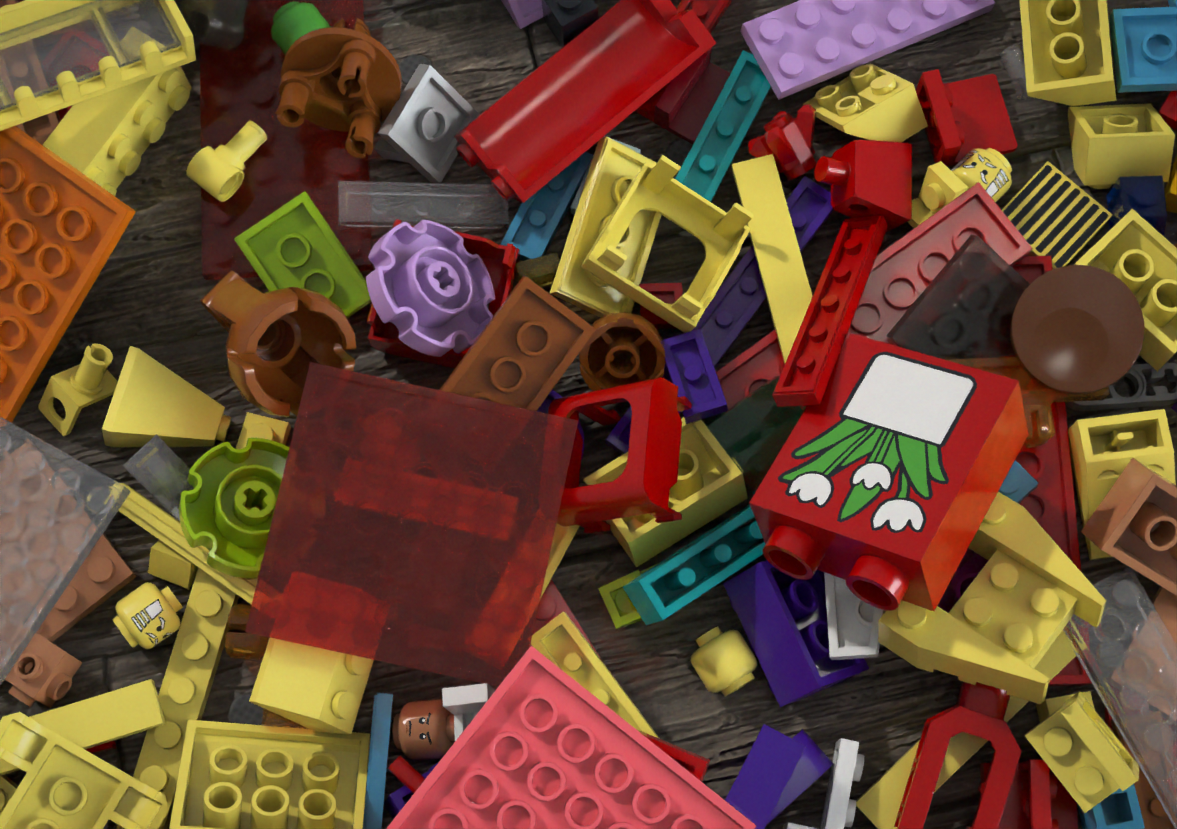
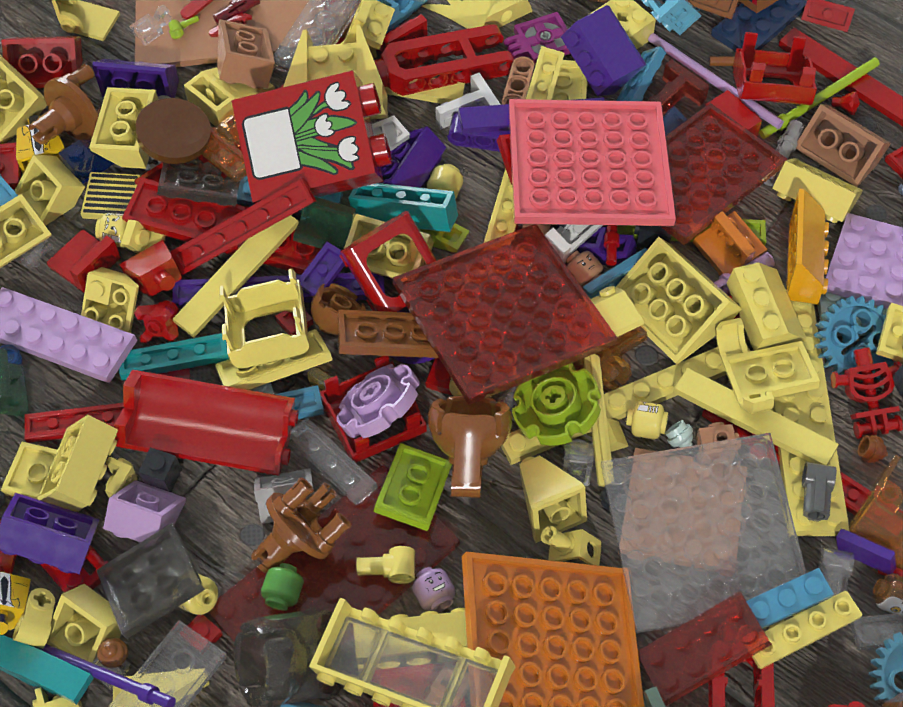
camera: 130 degrees left, 15 degrees down
(100, 643) = (680, 434): none -> light aqua plate
(165, 196) = (433, 589): none -> lavender head

